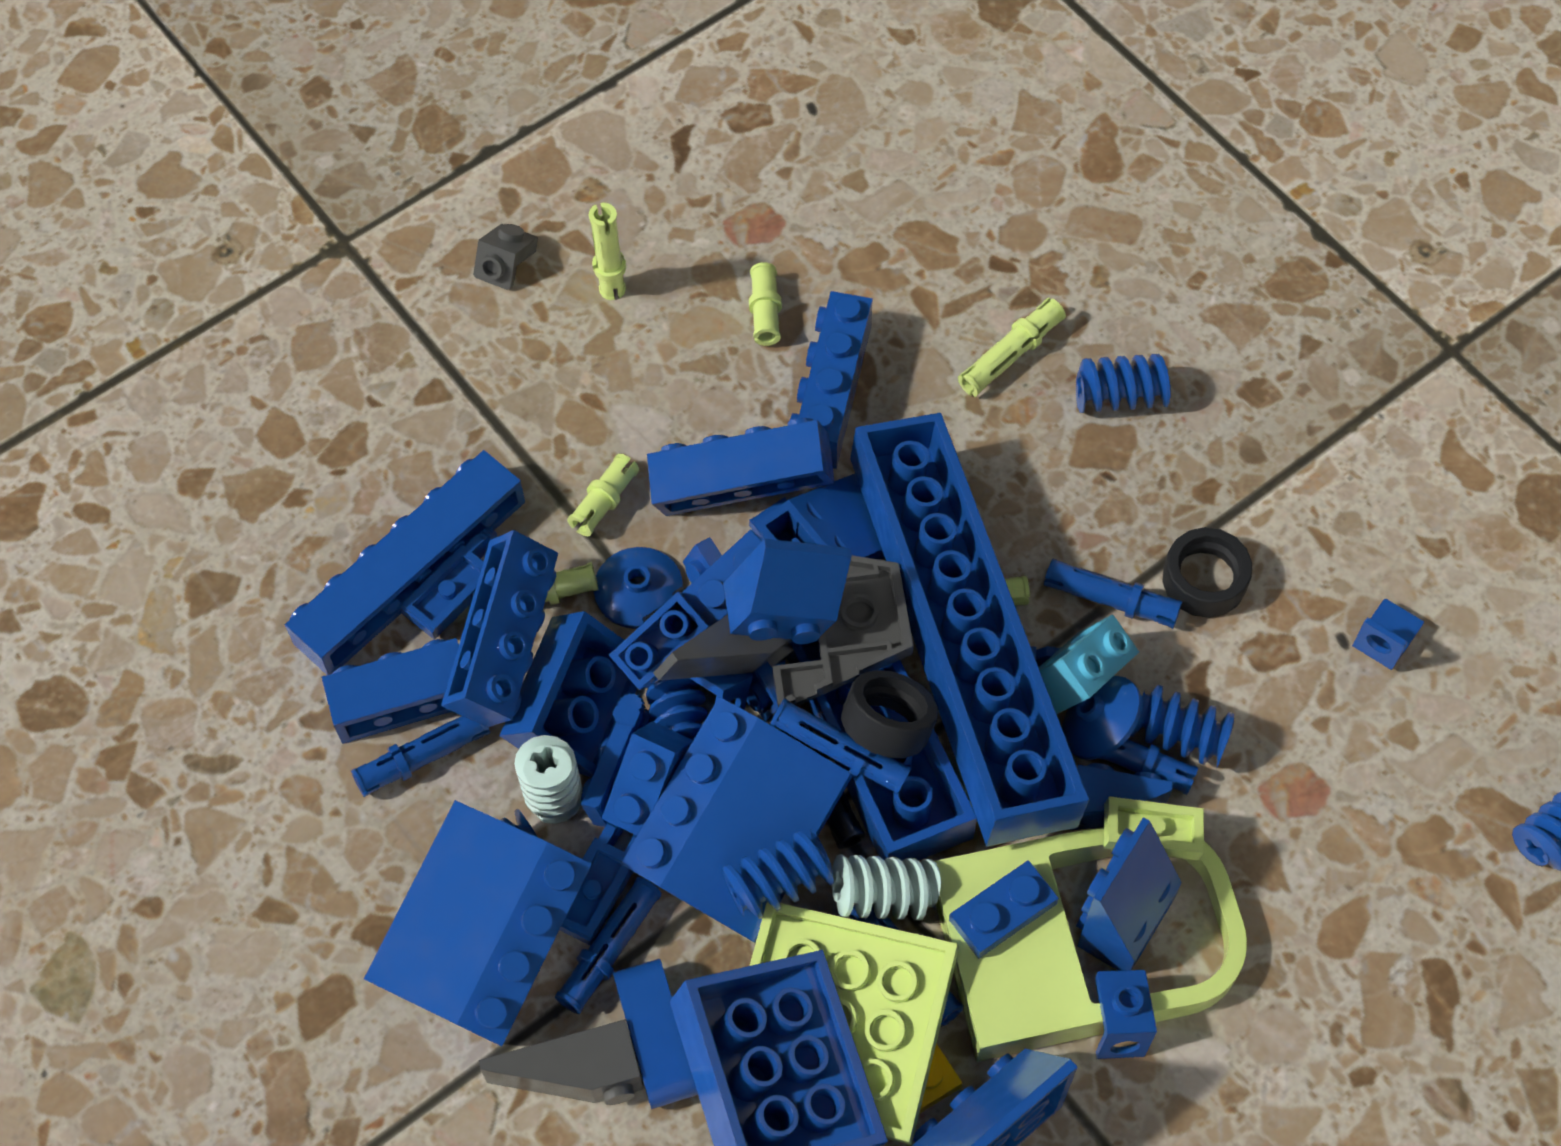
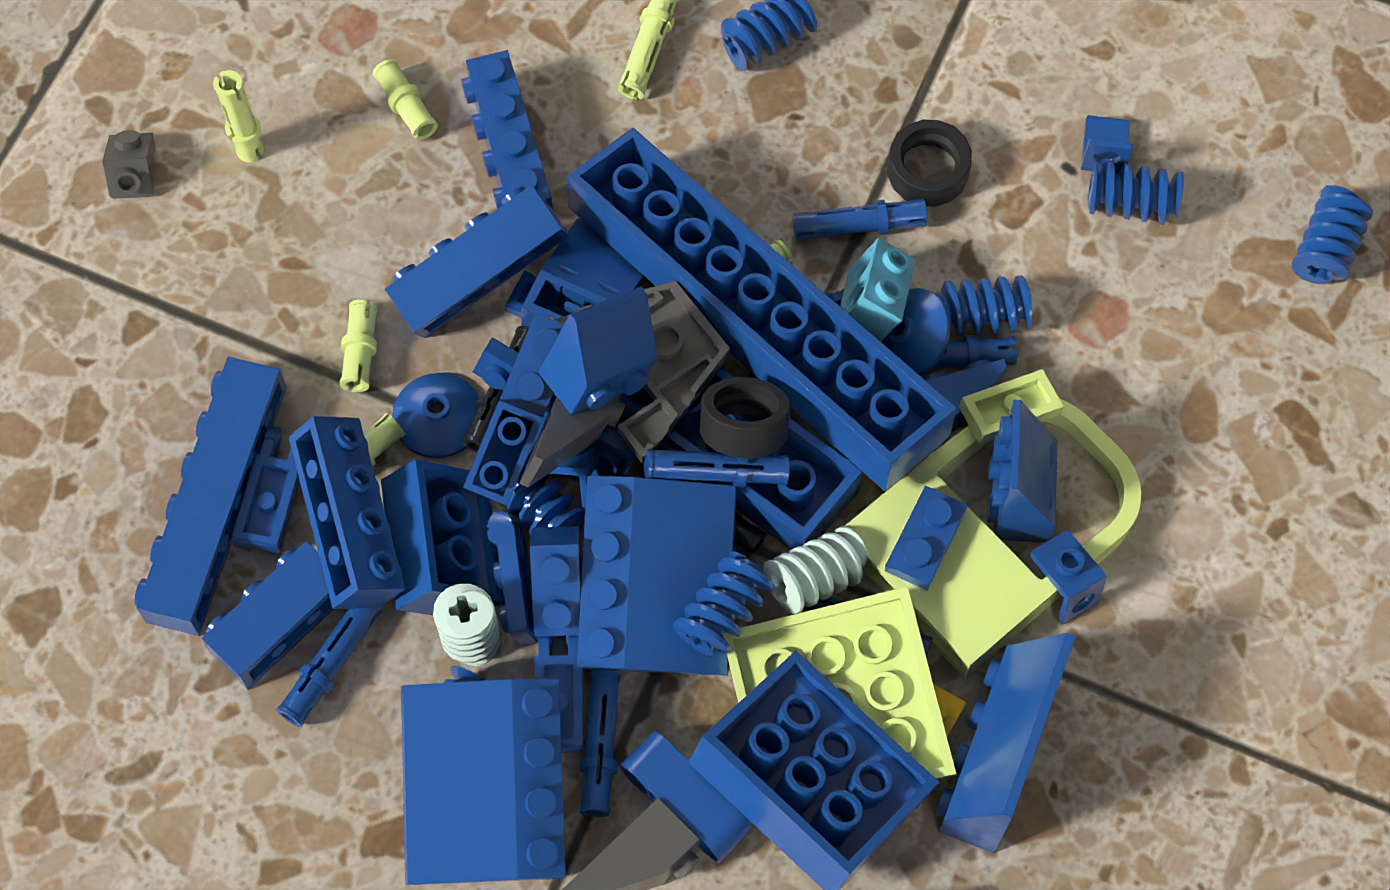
camera: 30 degrees left, 5 degrees up
(1389, 689) = (1135, 191): none -> blue piece

